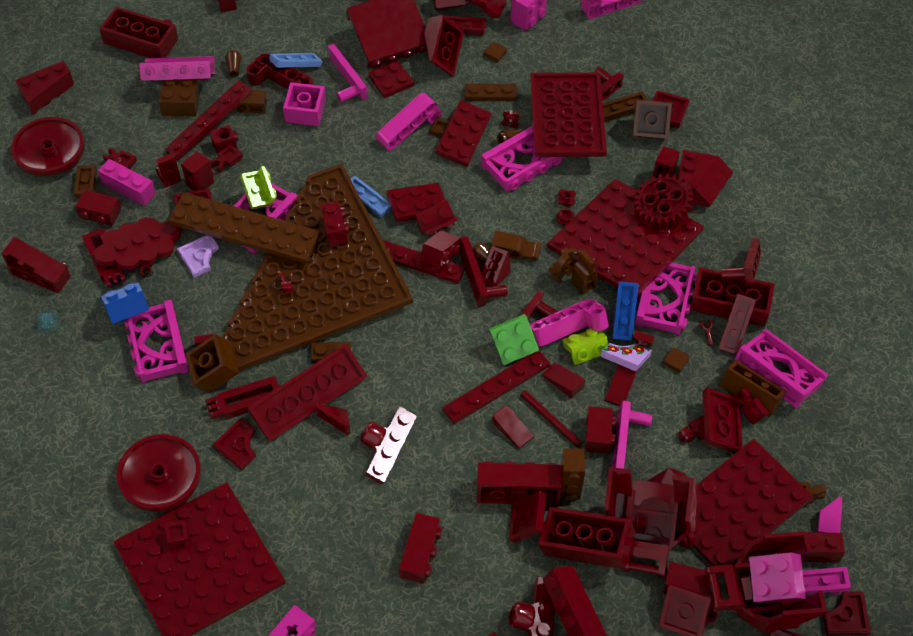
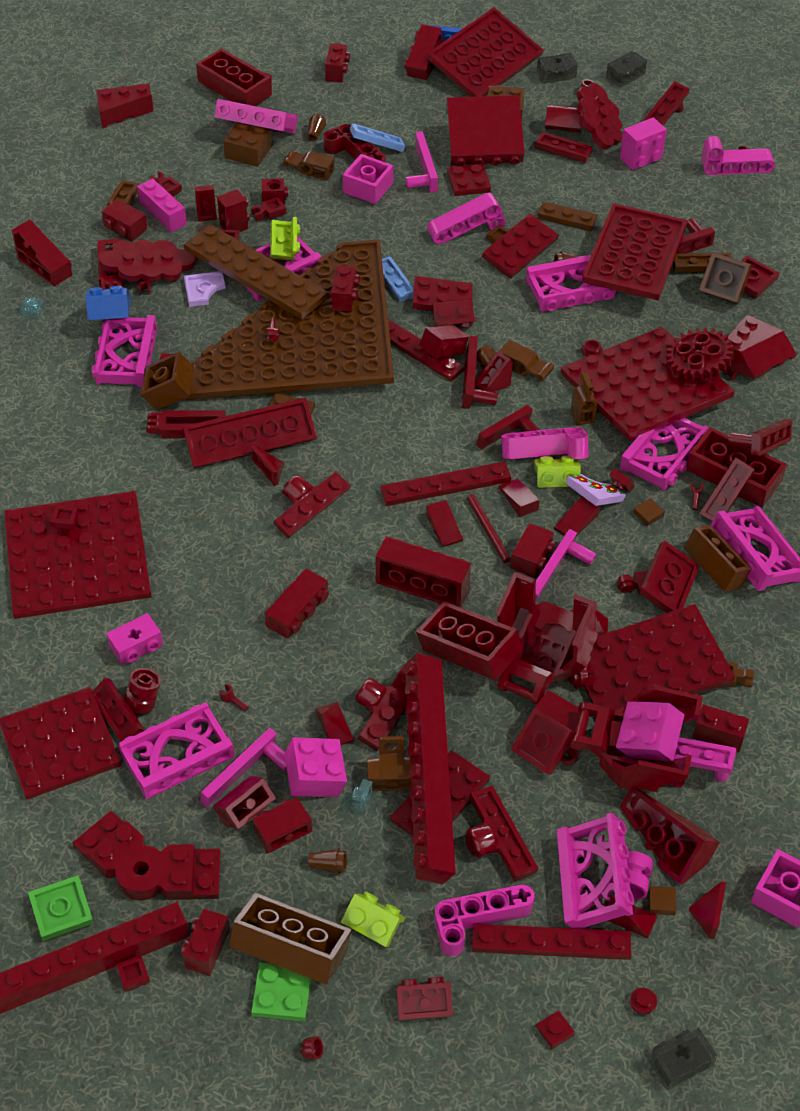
camera: 20 degrees right, 5 degrees down
(48, 146) = (101, 155): dark red dish -> none
(159, 472) = (73, 462): dark red dish -> none
(208, 119) = (268, 168): dark red plate -> none
(236, 444) = (160, 462): dark red tile -> none
(443, 43) = (535, 157): dark red slope -> none
(495, 52) = (589, 181): reddish brown tile -> none
(510, 115) = (580, 244): dark red plate -> none
(514, 339) = (480, 442): bright green plate -> none
(527, 517) = (418, 605): dark red plate -> none
(564, 264) = (562, 389): reddish brown plate -> none
(566, 201) = (601, 331): dark red plate -> none
(572, 473) = (480, 577): reddish brown brick -> none
(625, 311) = (612, 448): blue plate -> none
(666, 162) = (721, 319): dark red brick -> none
(753, 408) = (709, 575): dark red plate -> none
(830, 517) = (748, 703): dark pink slope -> none
(849, 616) = (724, 805): dark red tile -> none

